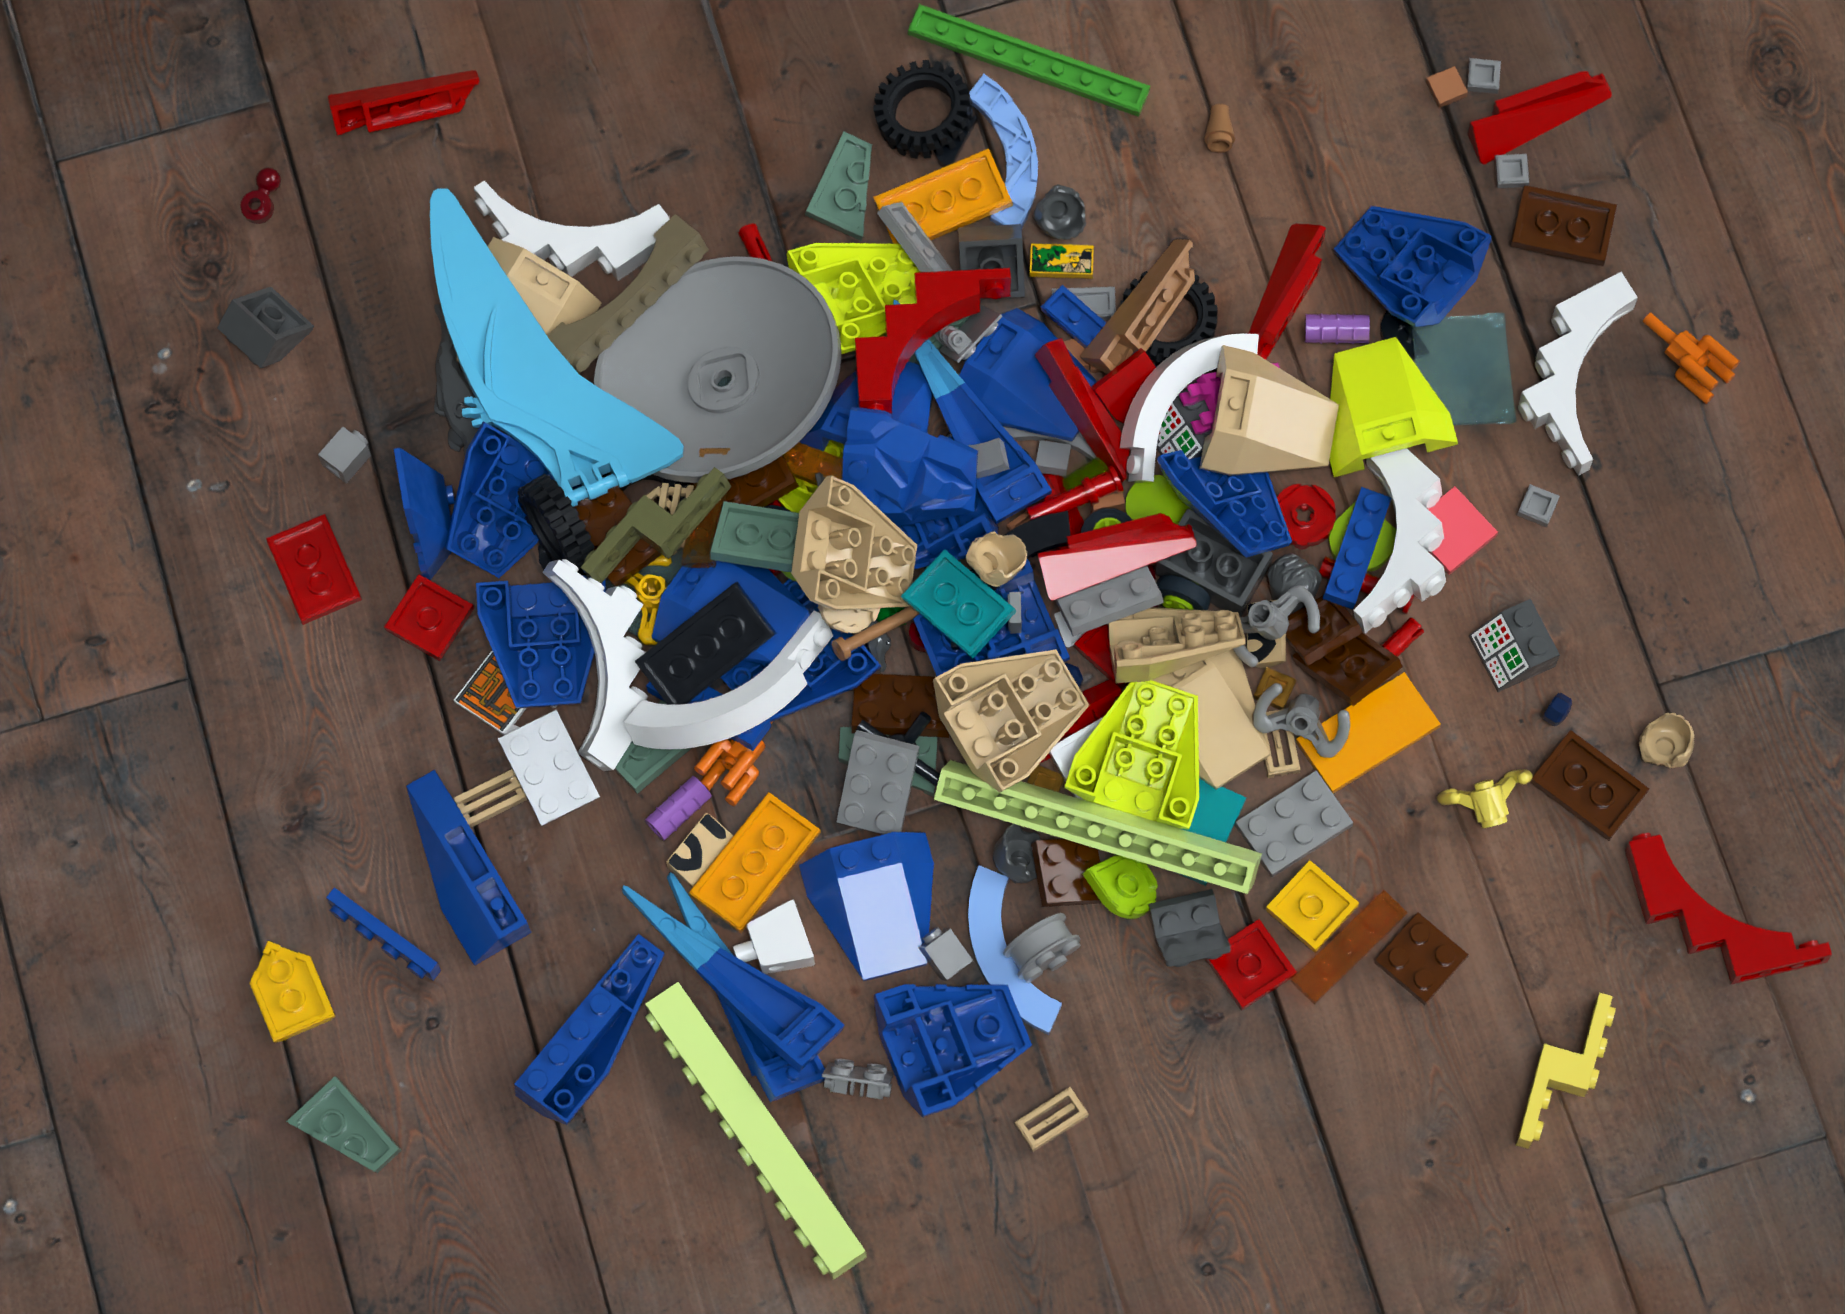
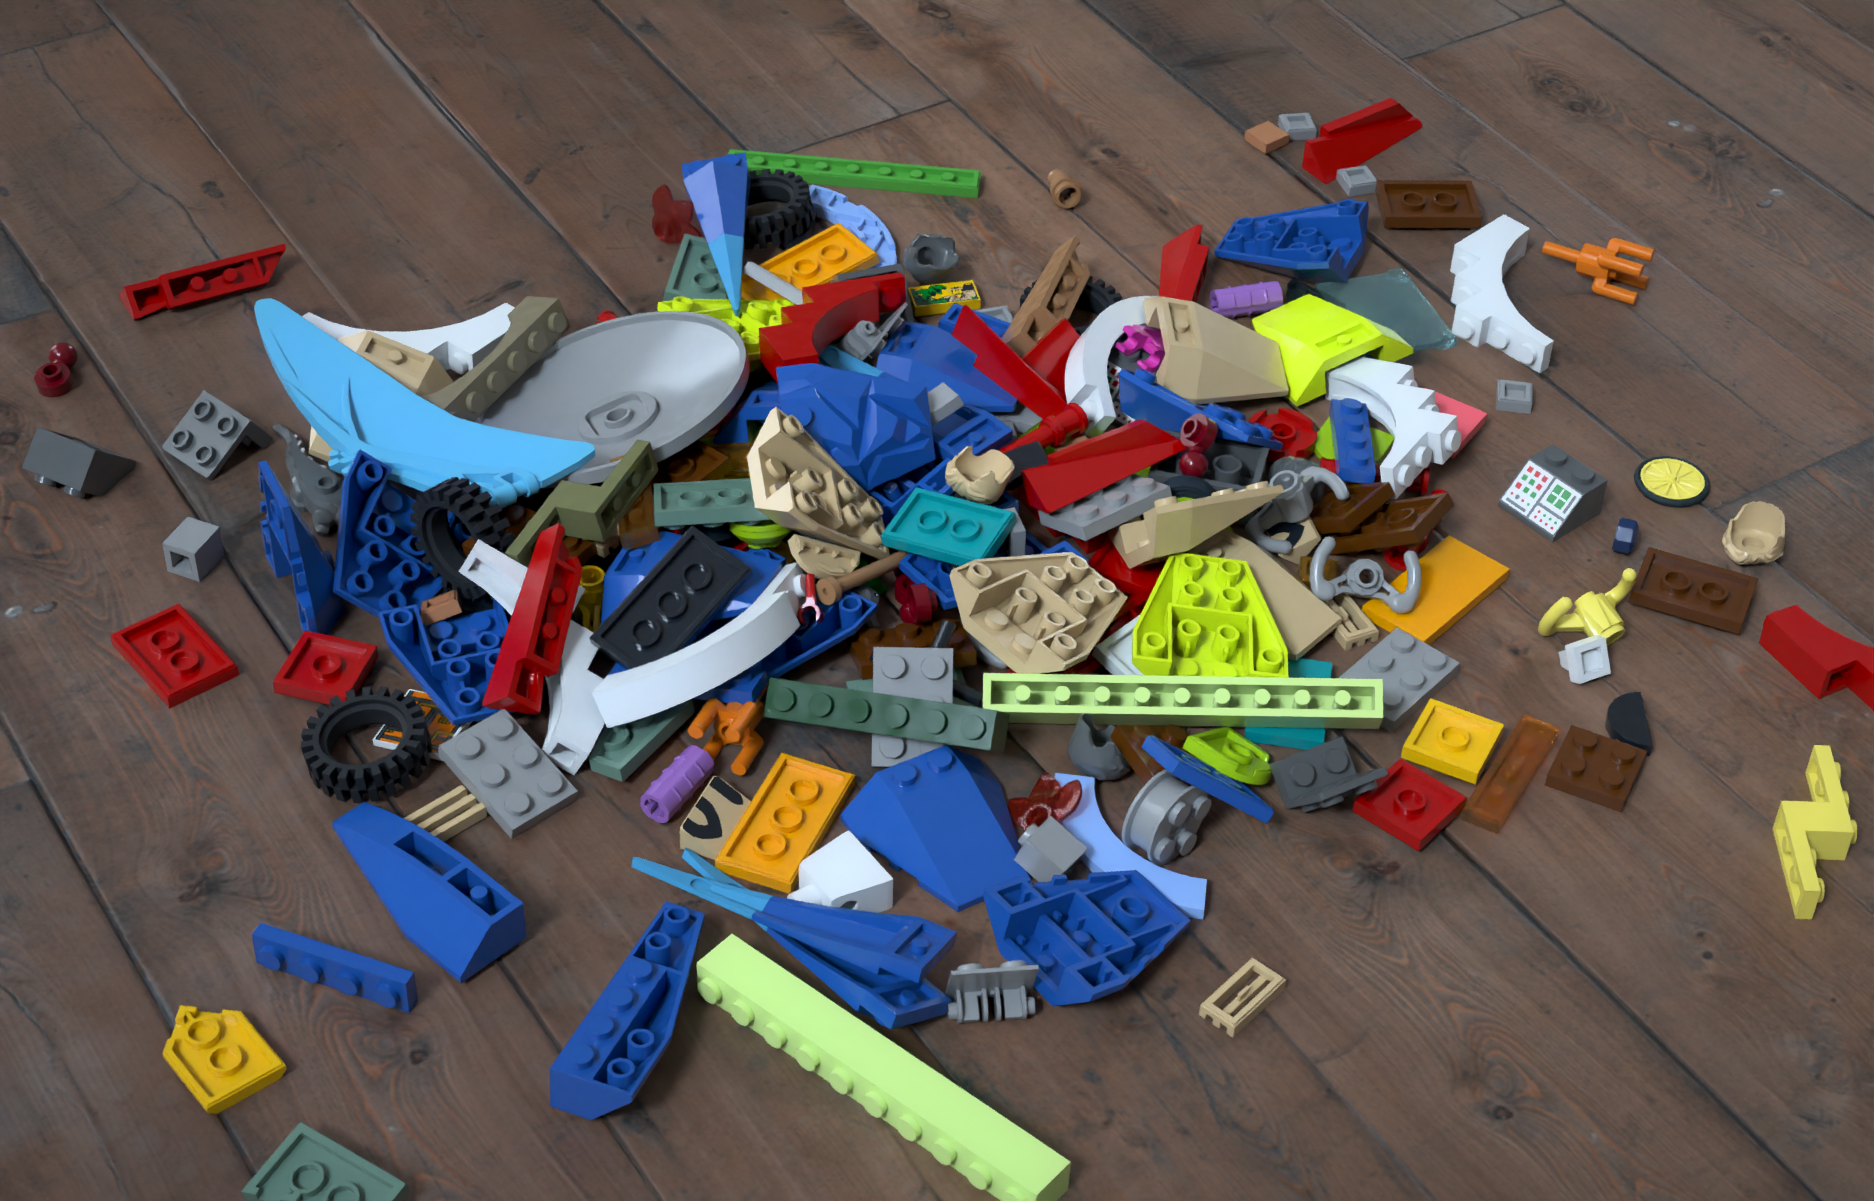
camera: 20 degrees left, 30 degrees down
(382, 314) = (211, 435): none -> dark grey bracket
(425, 683) = (375, 775): none -> black tyre
(529, 575) = (441, 607): none -> nougat tile
(593, 646) = (536, 627): none -> red wedge
(824, 659) = (810, 601): none -> red hand
(834, 112) = (671, 216): none -> clear red plate
(883, 93) = (720, 202): none -> blue plate
(899, 818) = (887, 715): none -> dark green arch
(918, 665) = (919, 606): none -> dark red plate
(958, 898) = (1045, 800): none -> clear red plate
(1083, 921) = (1207, 778): none -> blue tile
(1204, 543) = (1197, 435): none -> dark red plate
(1460, 844) = (1586, 659): none -> white tile
(1468, 917) = (1628, 721): none -> black tile
(1635, 644) = (1671, 481): none -> light yellow wheel

